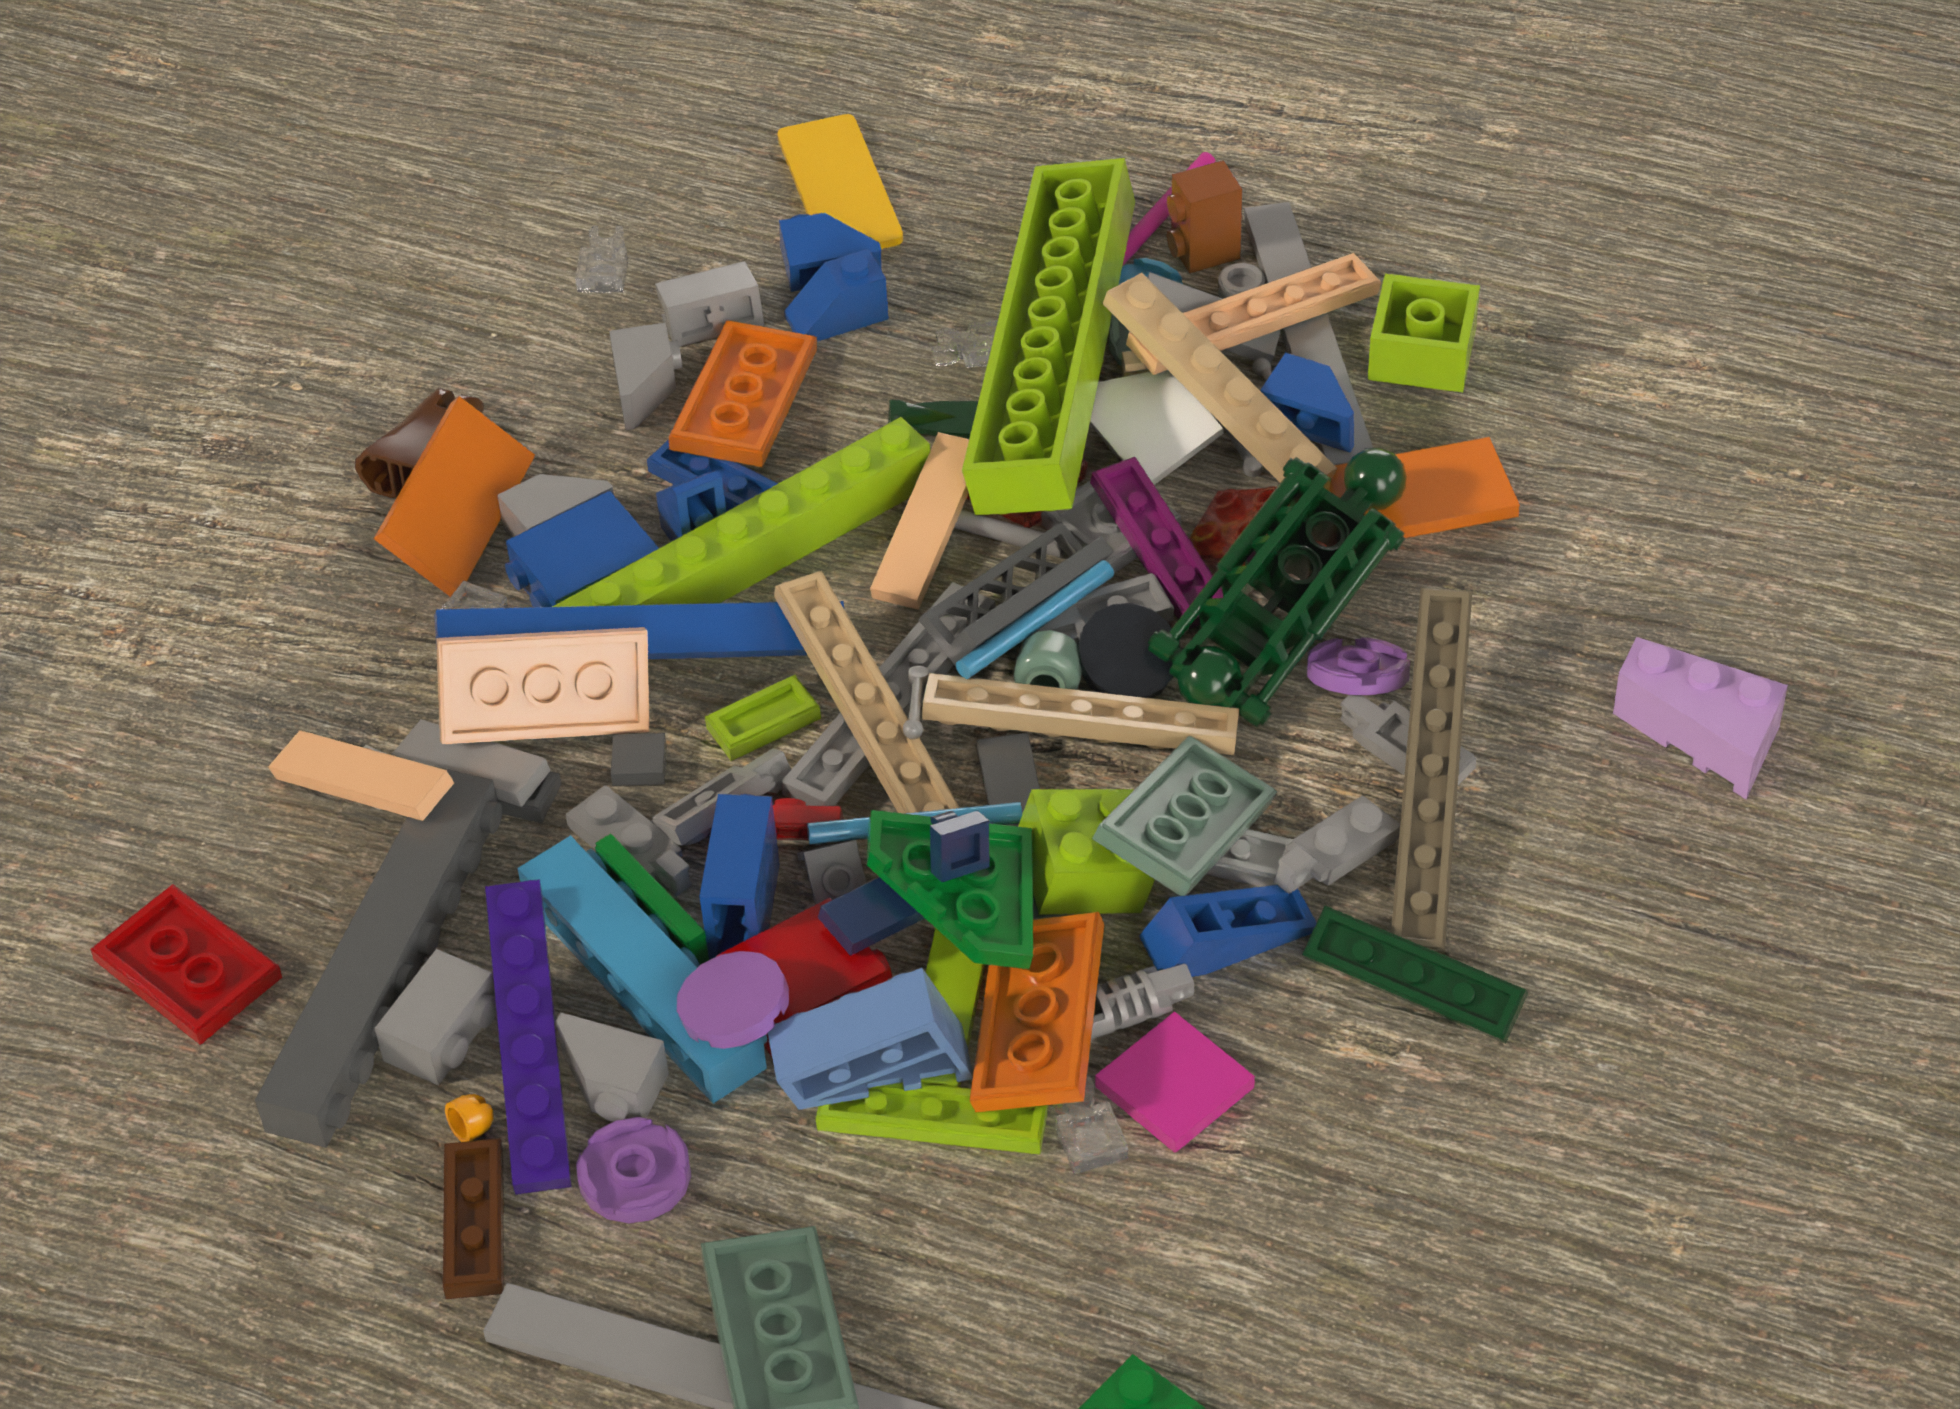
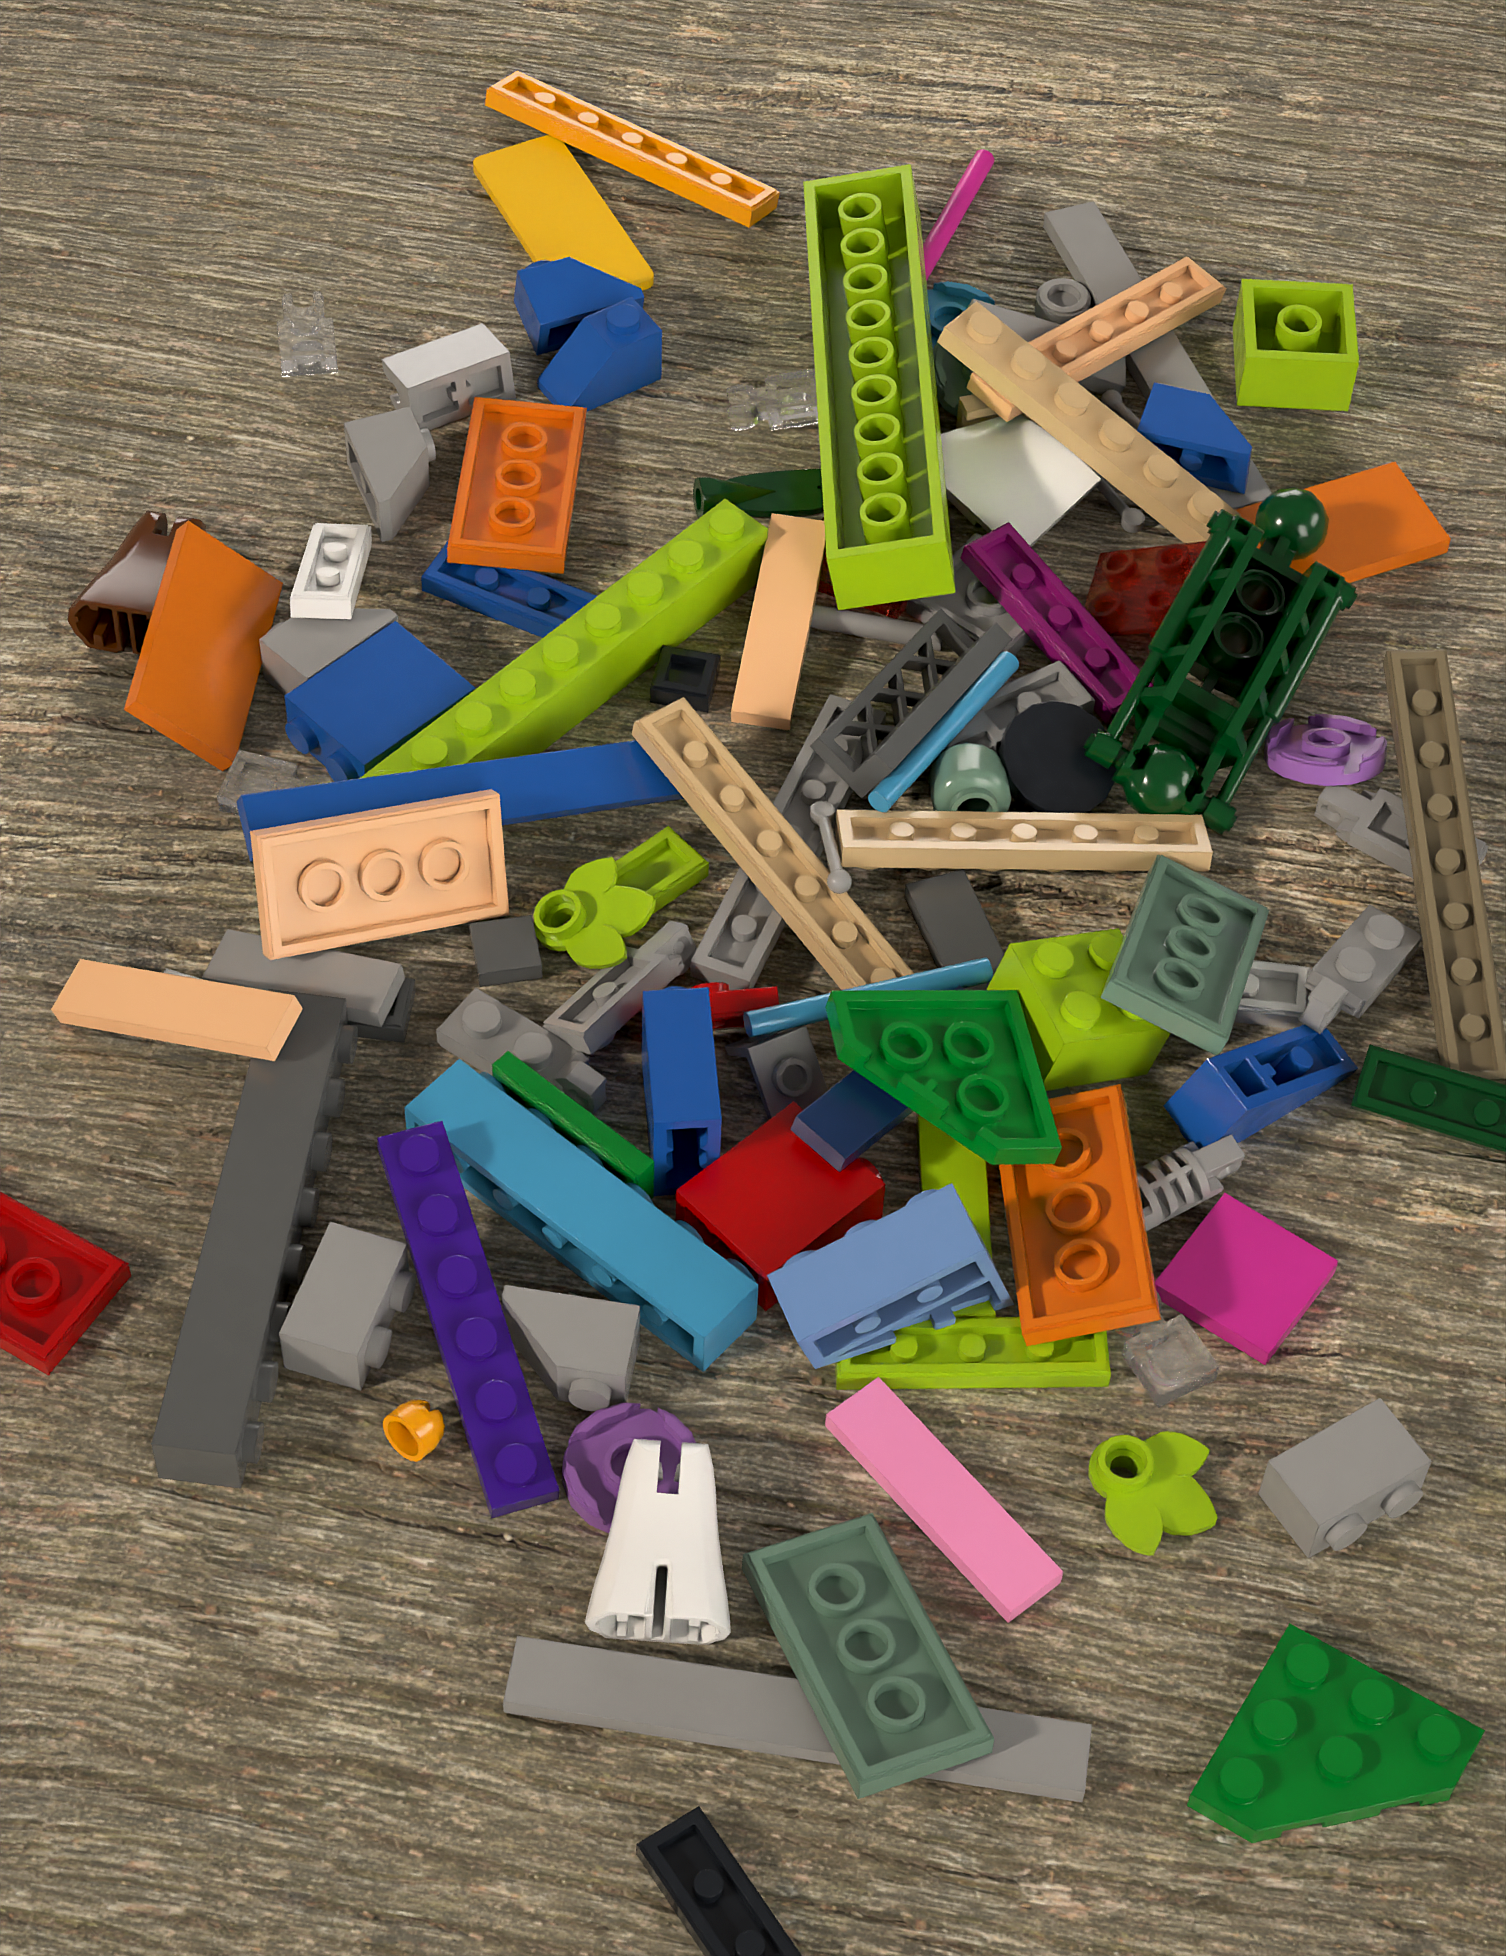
camera: 15 degrees left, 5 degrees up
(473, 1219) = (450, 1557): reddish brown tile -> none
(571, 447) = (331, 571): none -> white tile
(636, 1233) = (663, 1555): none -> white piece
(690, 504) = (498, 630): blue slope -> none
(712, 737) = (597, 915): none -> lime plate
(732, 999) = (718, 1245): medium lavender tile -> none
(842, 559) = (685, 675): none -> black tile
(878, 1224) = (944, 1499): none -> bright pink tile
(912, 130) = (633, 148): none -> light orange tile
(958, 844) = (950, 1022): dark blue tile -> none
(1056, 1241) = (1160, 1493): none -> lime plate
(1205, 217) = (1013, 226): dark orange brick -> none
(1209, 1246) = (1345, 1479): none -> light grey brick

